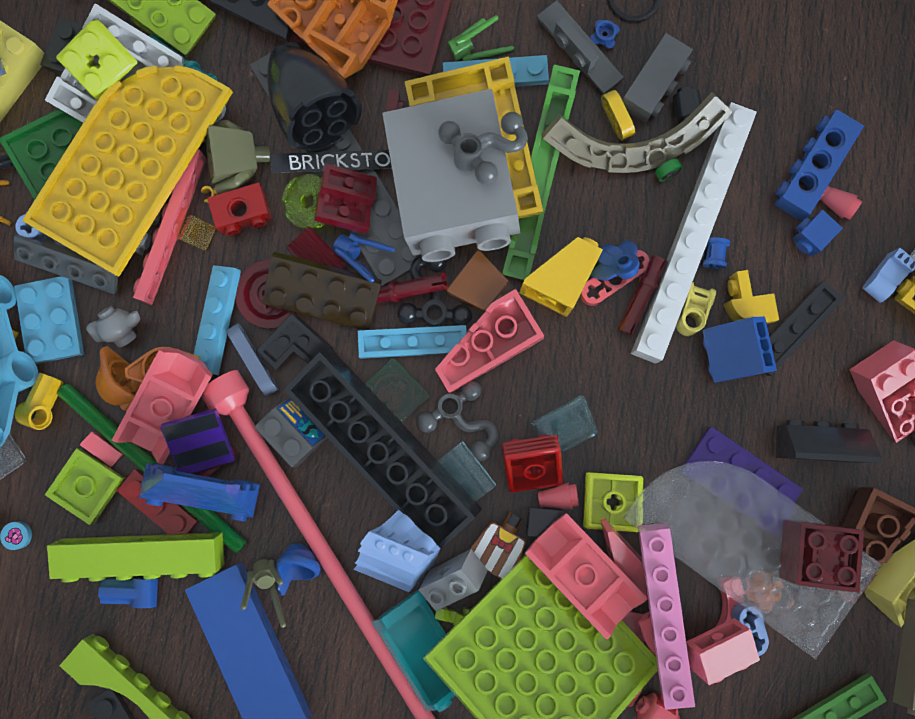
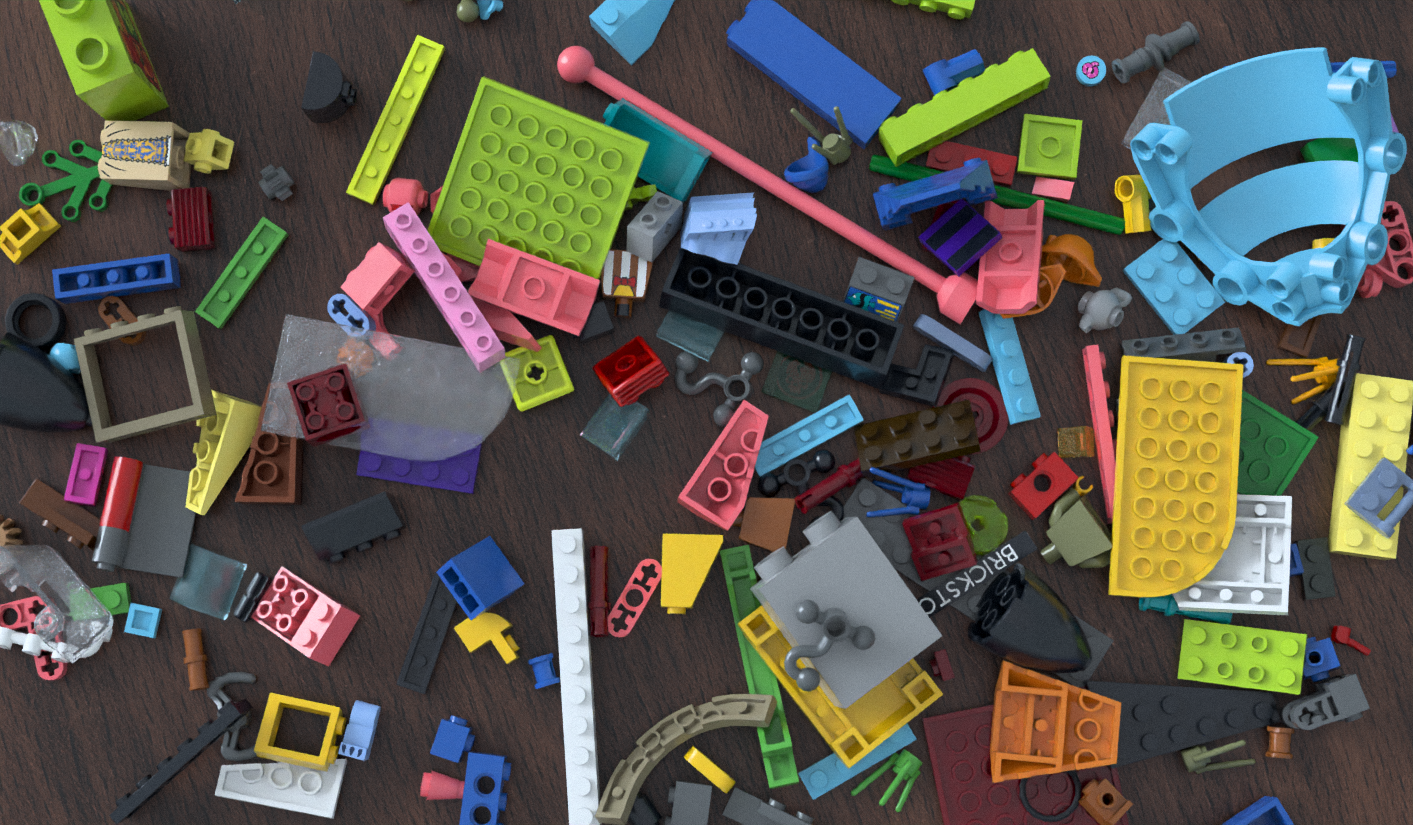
camera: 160 degrees right, 0 degrees up
(114, 59) = (1270, 569): neon yellow brick -> none
(559, 497) = (588, 354): coral cone -> none
(617, 261) = (641, 612): blue plate -> none
(668, 170) = (631, 735): green tile -> none
(696, 306) = (540, 605): light yellow piece -> none

